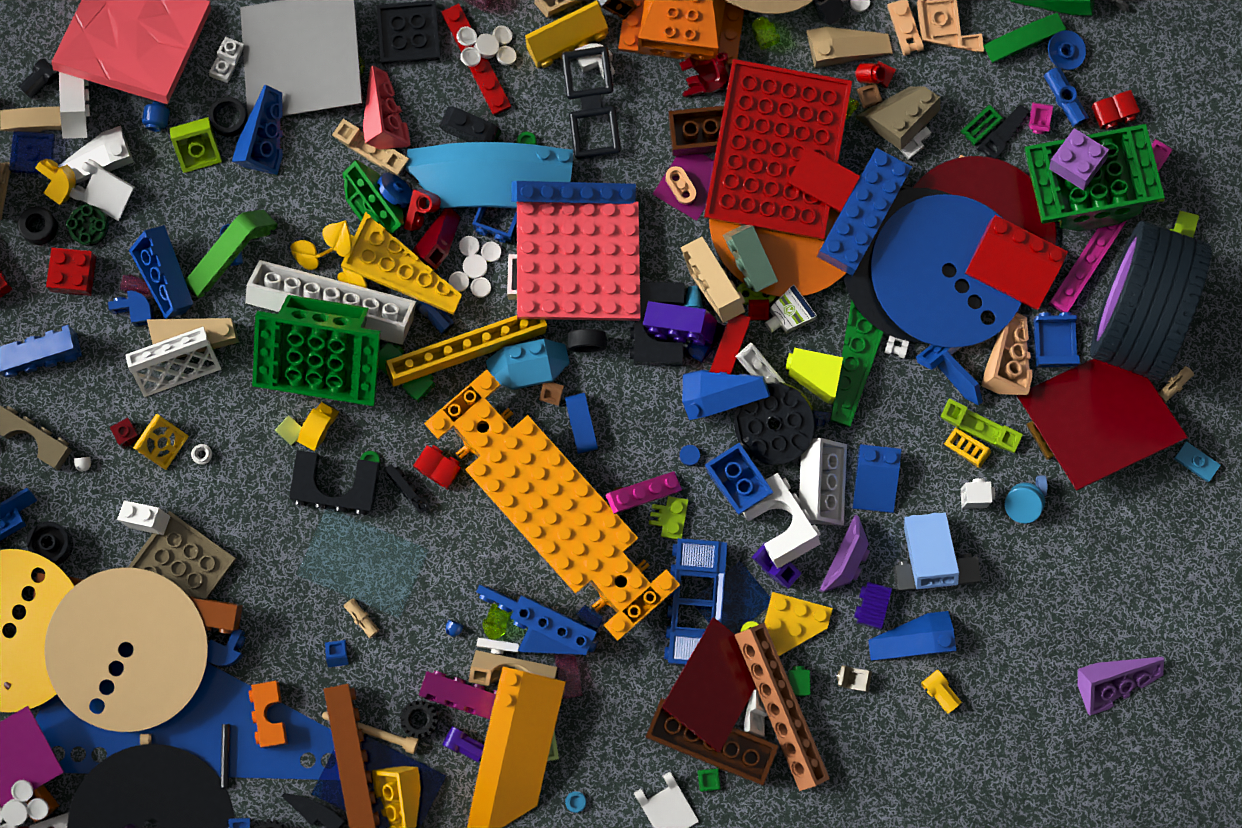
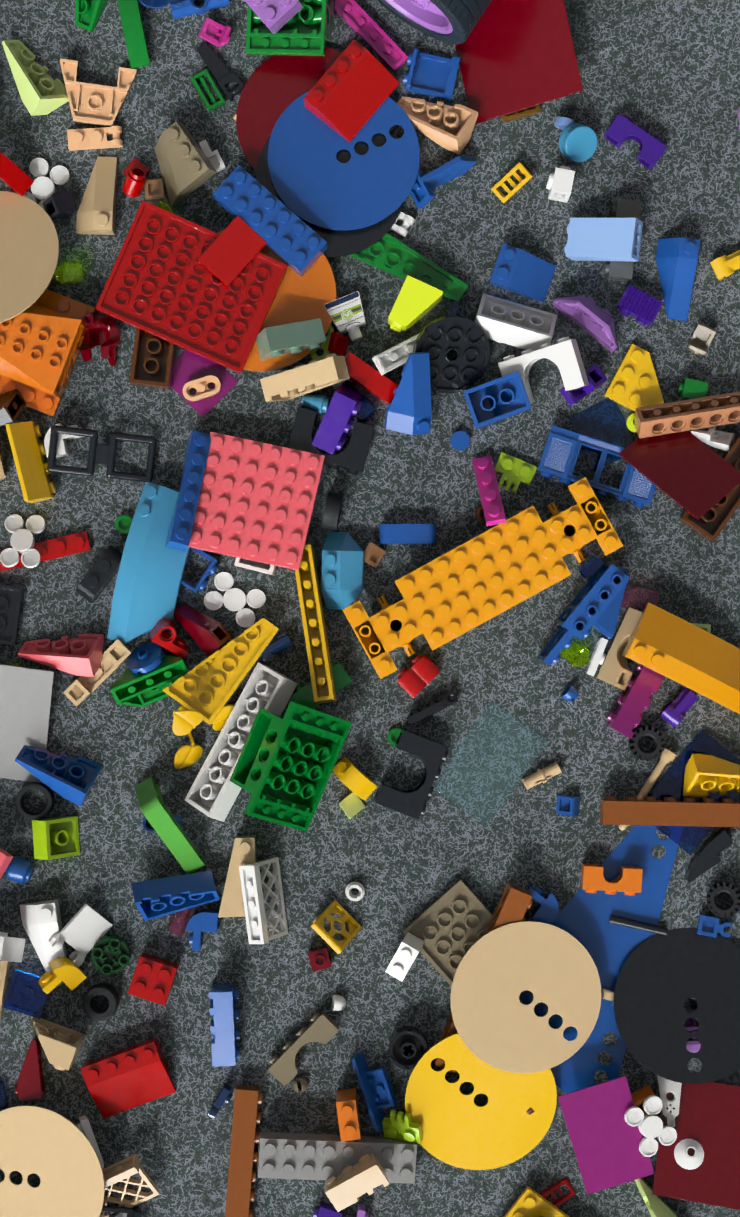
camera: 75 degrees left, 10 degrees up
(980, 427) = (496, 164): lime slope -> none
(1050, 547) = (650, 147): none -> dark purple arch

